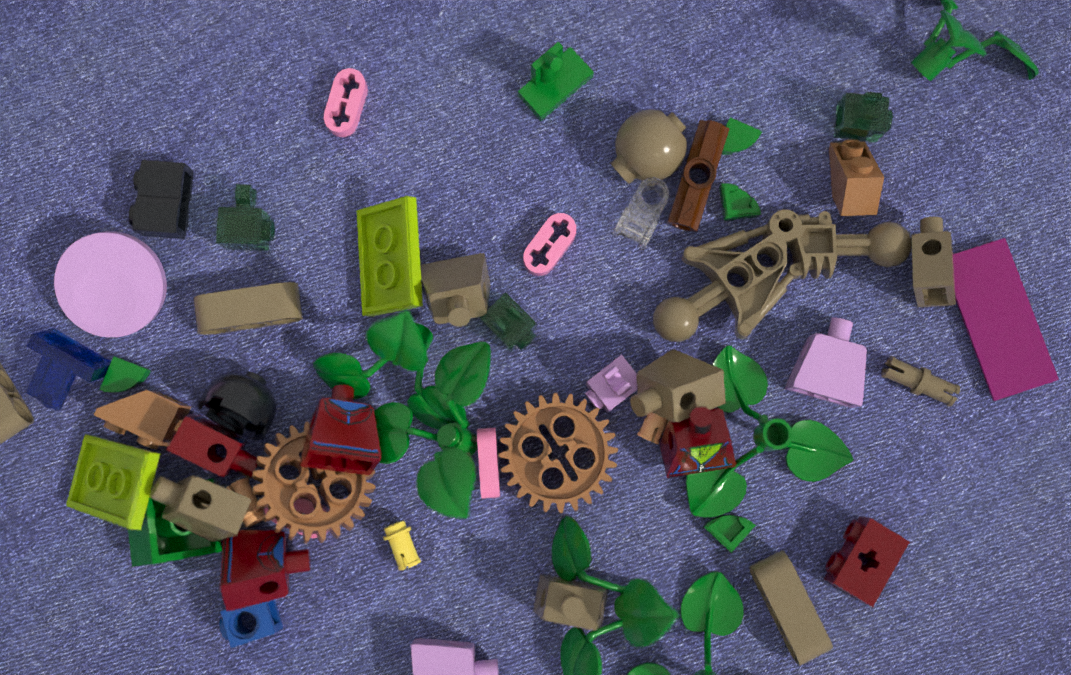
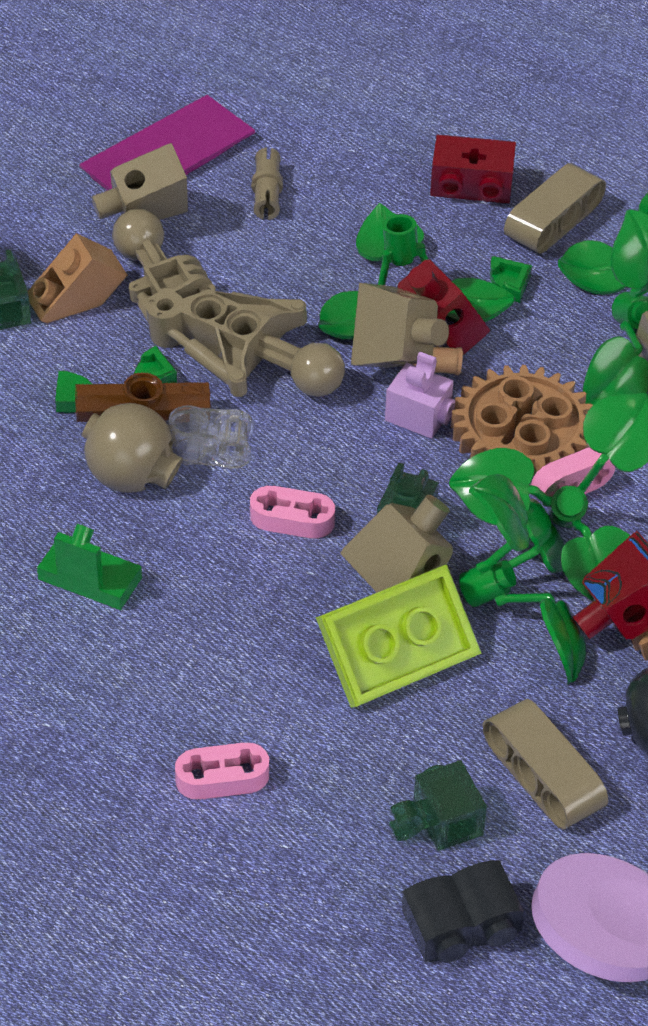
camera: 115 degrees left, 35 degrees down
(831, 367) = (294, 244): lavender torso -> none

